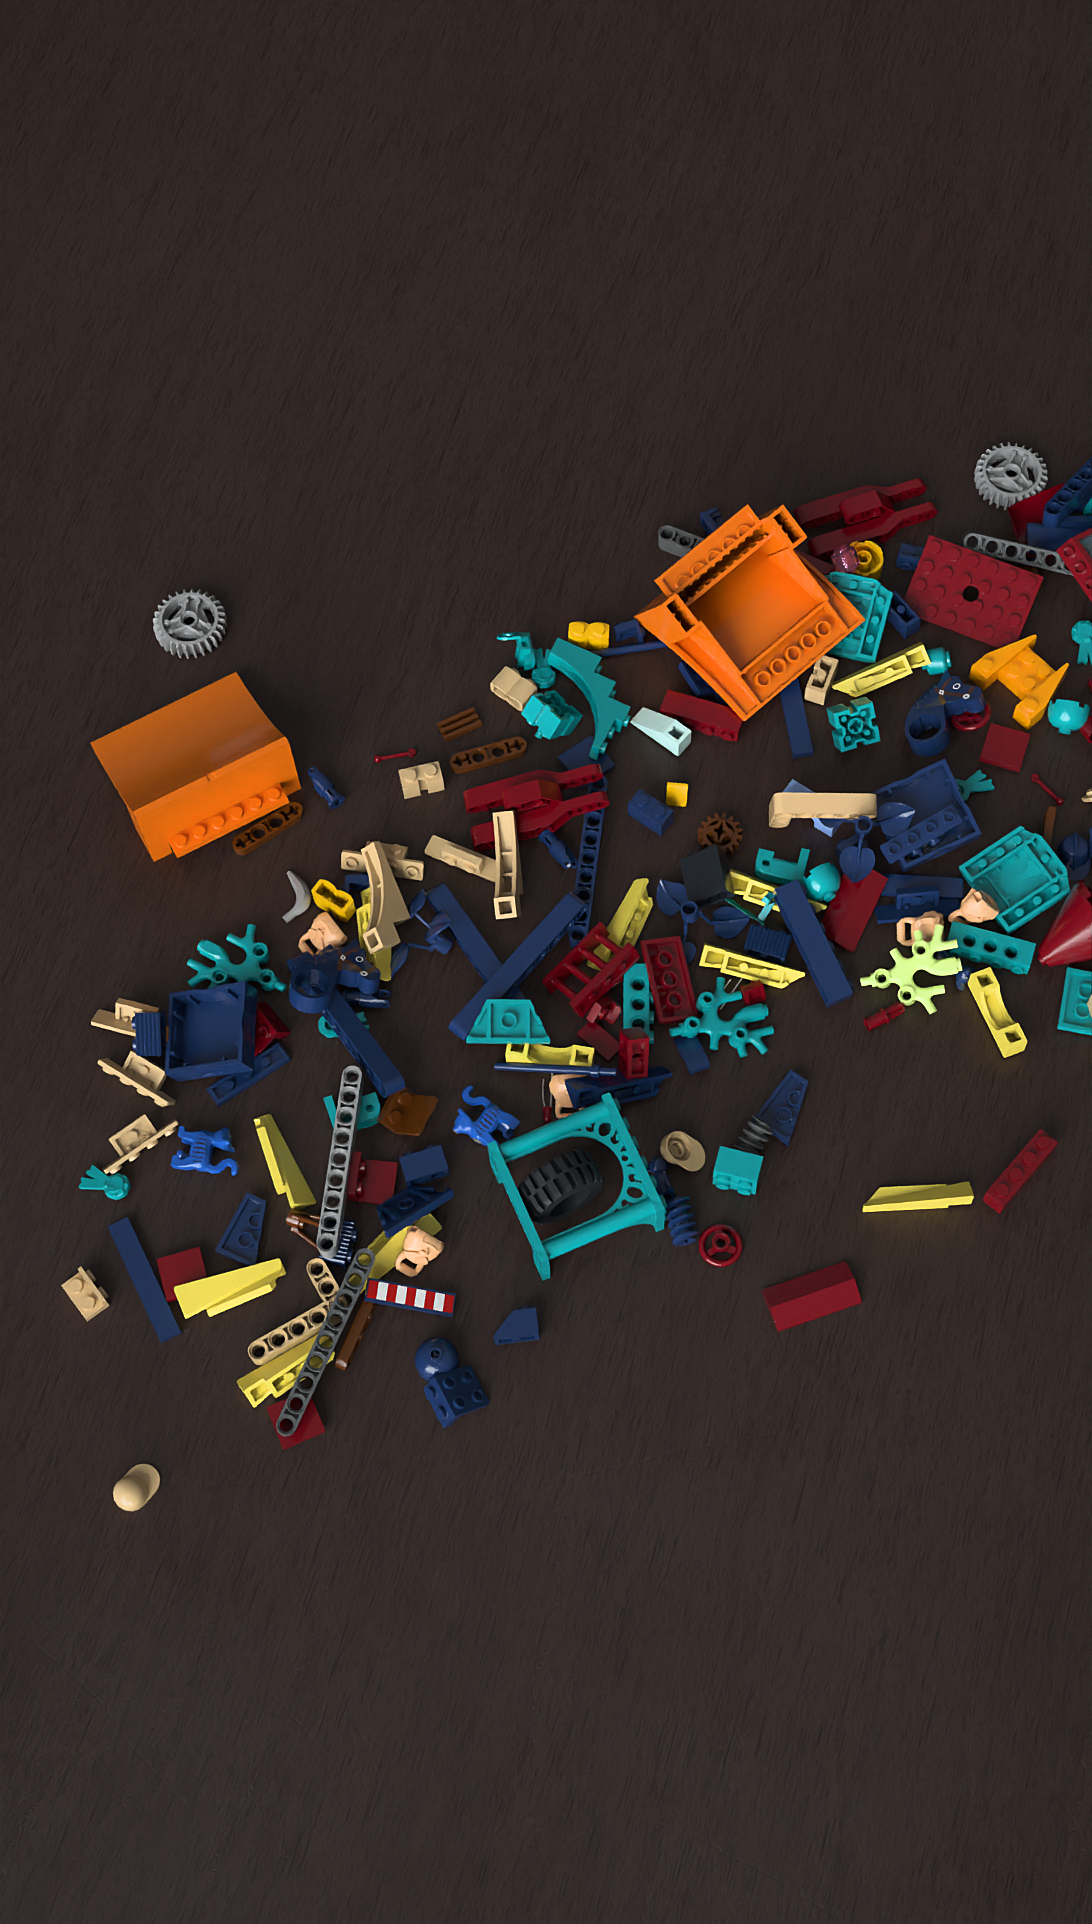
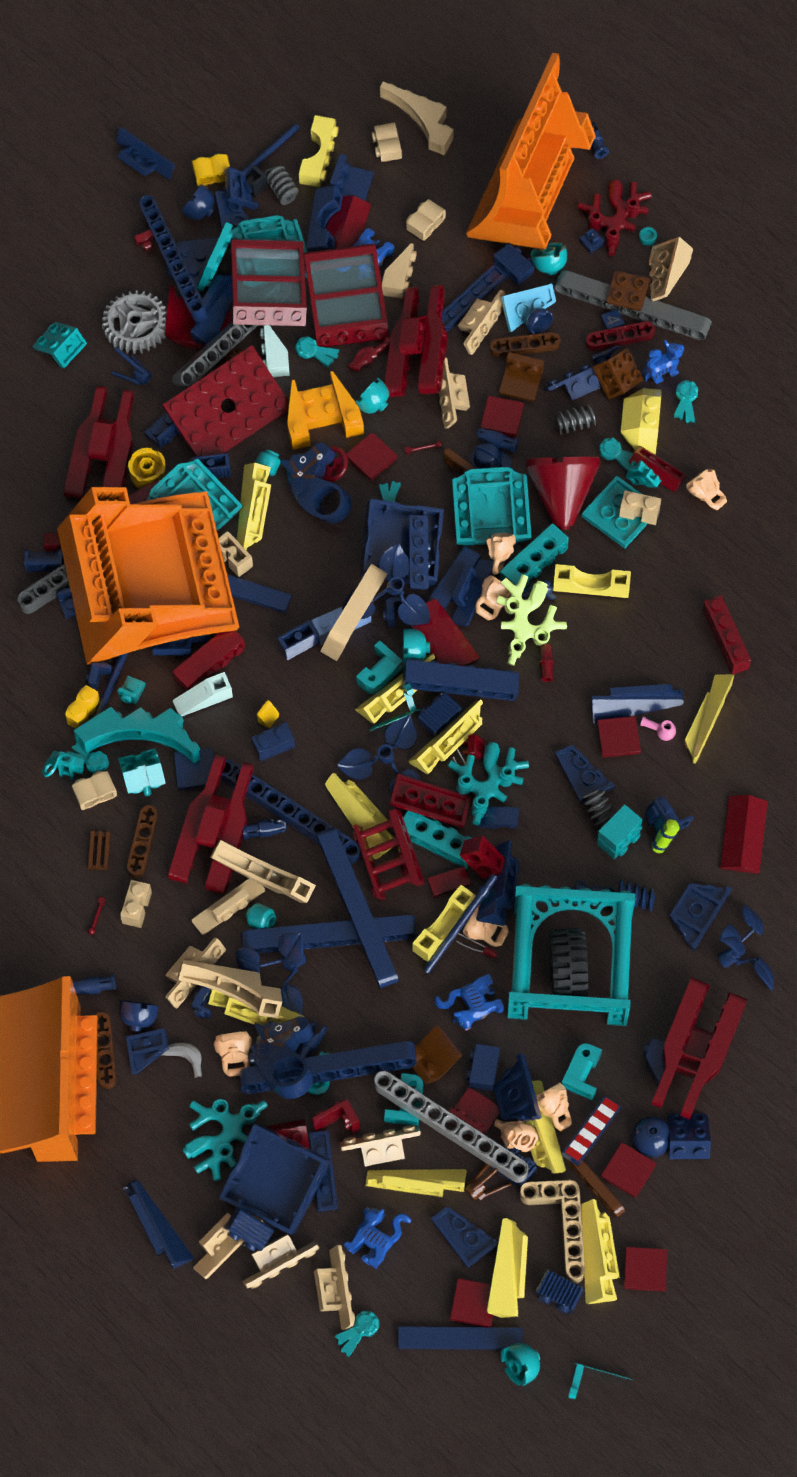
camera: 65 degrees left, 0 degrees up
(85, 1295) = (448, 1391): tan bracket -> none
(121, 957) = (156, 1226): none -> dark blue wedge
(136, 1487) = (635, 1424): tan cap -> none
(143, 1347) = (522, 1363): none -> teal cylinder
(159, 1408) = (577, 1378): none -> teal piece
(232, 1347) = (558, 1292): none -> dark blue brick
(285, 861) = (146, 1048): none -> dark blue wing
(297, 1113) = (381, 1147): none -> bracket
(307, 1060) = (339, 1110): none -> dark red bracket
(314, 836) = (137, 1014): none -> dark blue cylinder
(326, 1330) = (600, 1220): dark grey beam -> none
(333, 900) = (210, 1025): yellow brick -> none
(366, 1227) = (517, 1134): none -> light nougat piece
(389, 1354) = (628, 1170): none -> dark red tile
(467, 892) = (260, 916): none -> teal head
(469, 1256) = (579, 1069): none -> teal piece
(508, 1023) = (406, 937): teal wing -> none
(548, 1365) = (704, 1049): none -> dark red beam
(605, 1009) = (428, 862): dark red bracket -> none
(632, 668) = (131, 690): none -> teal bracket
(670, 1330) = (737, 949): none -> dark blue plant
(682, 1150) = (578, 866): tan cap -> none
(700, 1289) = (697, 911): none -> dark blue wing
(707, 876) = (358, 727): black brick -> none
(719, 1236) = (669, 871): dark red piece -> none
(728, 840) = (323, 709): reddish brown gear -> none
(765, 778) = (298, 640): none -> dark blue brick
(772, 1210) = (664, 823): none -> dark blue piece
(844, 1122) = (619, 737): none -> dark red tile
(845, 559) = (145, 476): clear pink head -> none
(853, 724) = (289, 551): teal brick -> none
(875, 1168) = (662, 733): none -> bright pink bar
(892, 1118) = (634, 701): none -> dark blue wedge
(946, 429) = (61, 342): none -> teal bracket
(960, 510) = (141, 374): none -> dark blue plant
(1054, 611) = (275, 353): none -> light aqua slope

